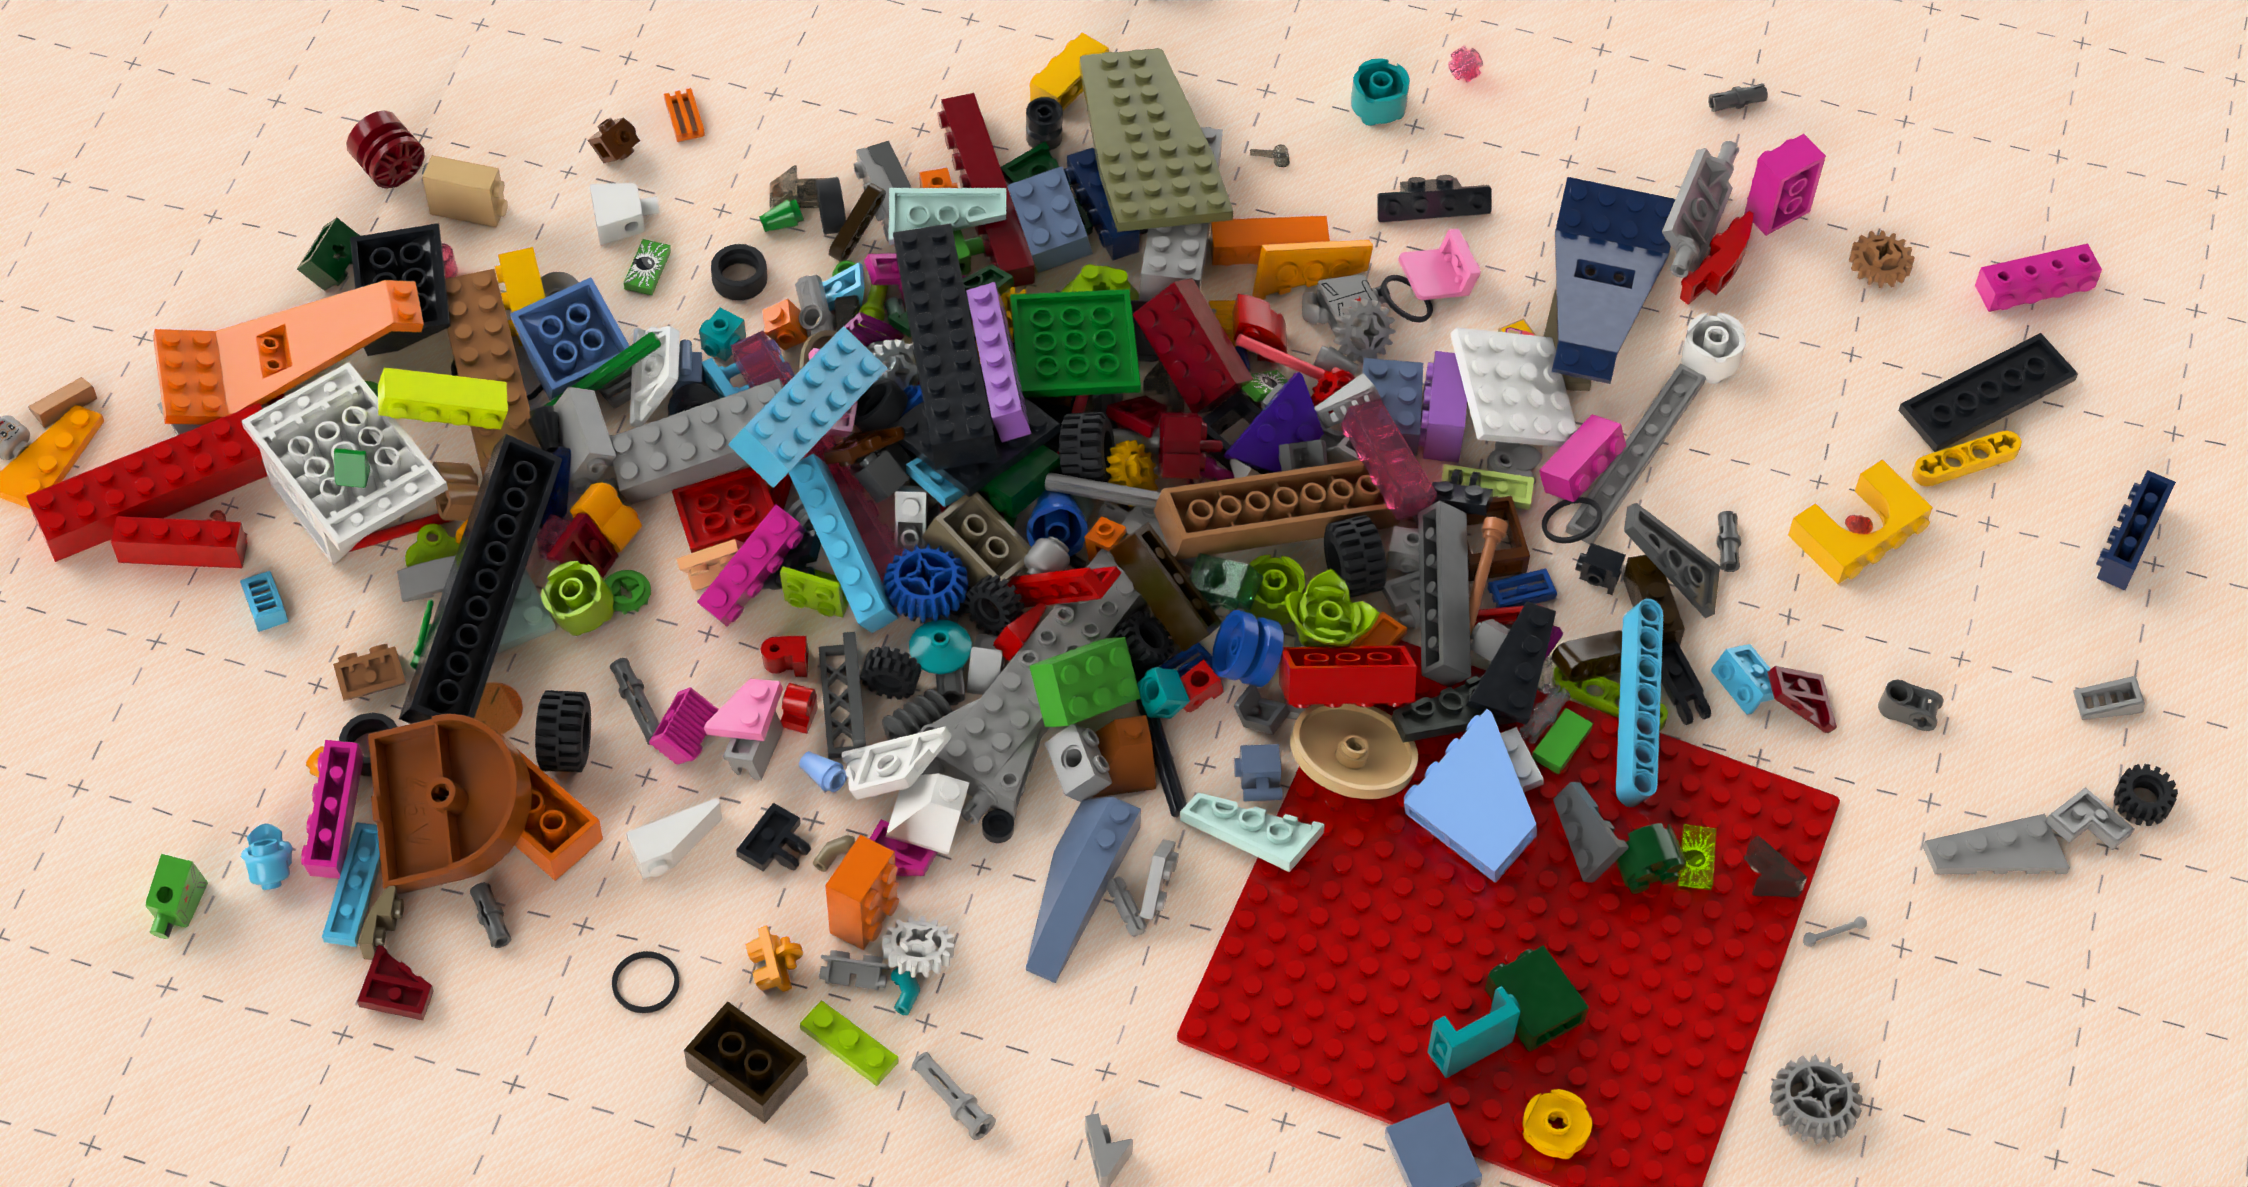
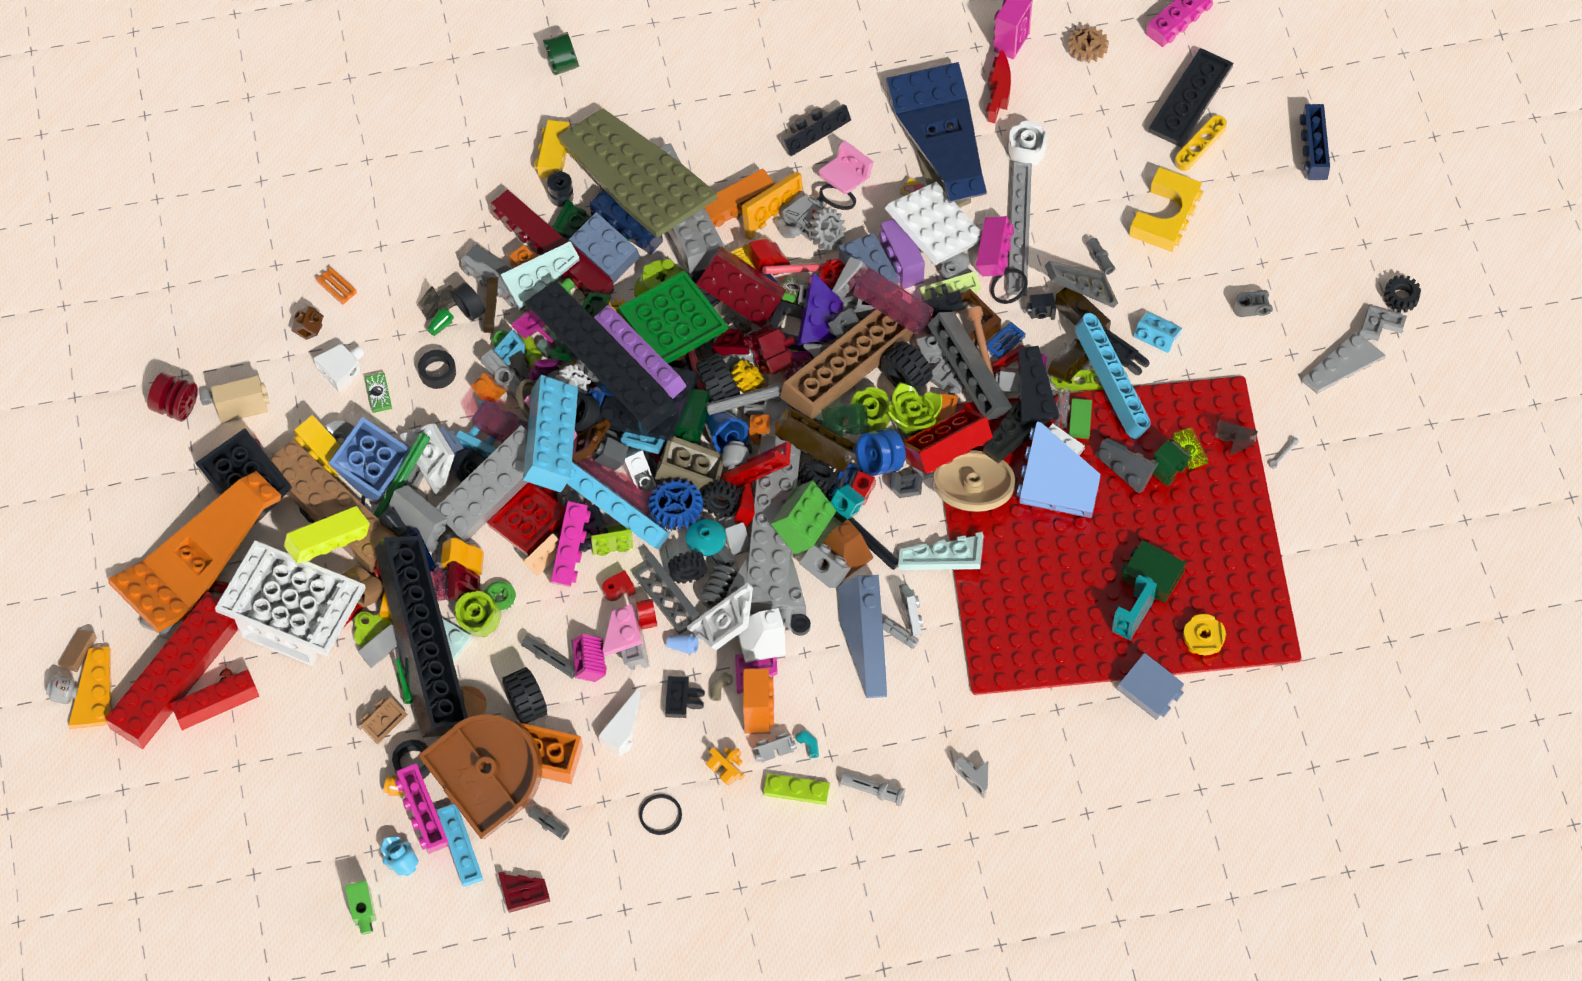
camera: 25 degrees left, 5 degrees up
(270, 617) = (300, 716): medium azure slope -> none
(329, 255) = (183, 478): dark green brick -> none
(351, 468) = (304, 604): slope -> none
(380, 919) = (490, 851): dark tan slope -> none
(720, 333) = (454, 413): teal brick -> none
(746, 1062) = (750, 829): dark brown brick -> none
(918, 946) = (800, 715): white gear -> none
(1259, 772) = (925, 518): sand blue brick -> none
(1279, 153) = (708, 141): clear smoke hand -> none
(1330, 358) = (818, 255): light grey cone -> none
(1380, 92) = (745, 74): teal brick -> none
(1465, 63) = (783, 33): clear pink gear -> none
(1699, 207) = (971, 60): light grey plate -> none
(1803, 694) = (1194, 326): dark red wing -> none
(1824, 1084) = (1328, 562): light grey gear -> none
(1859, 524) = (1167, 212): clear red arm -> none
(2118, 687) = (1360, 234): light grey slope -> none

